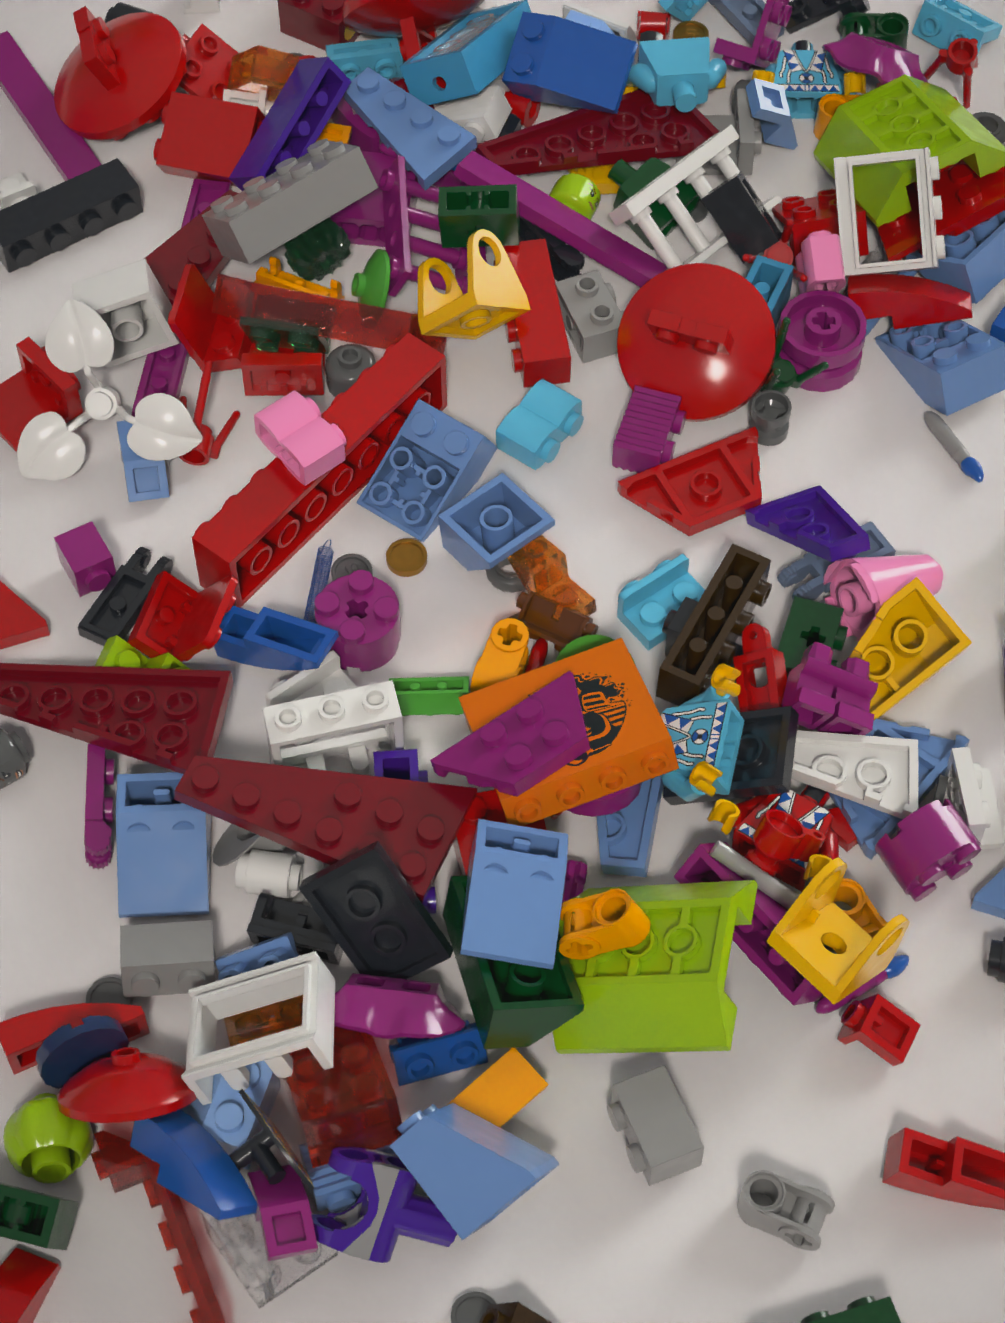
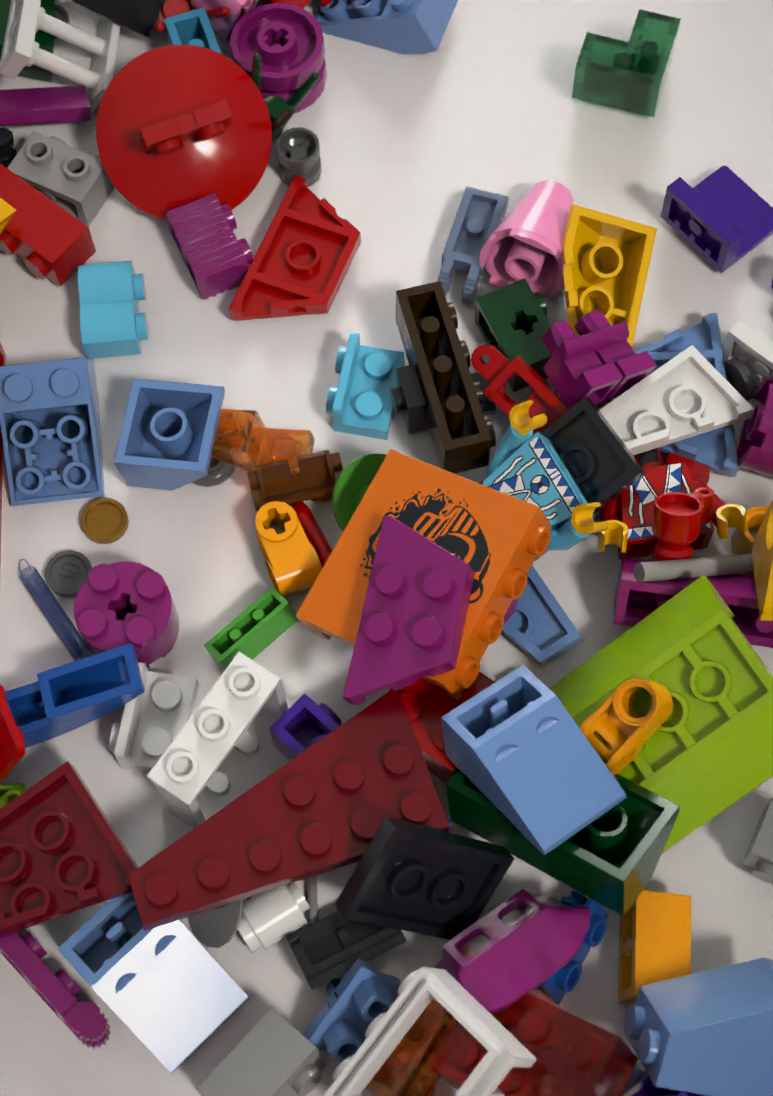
camera: 40 degrees left, 10 degrees up
(811, 523) = (428, 223): dark purple wing -> none
(956, 449) = (490, 80): light grey piece -> none

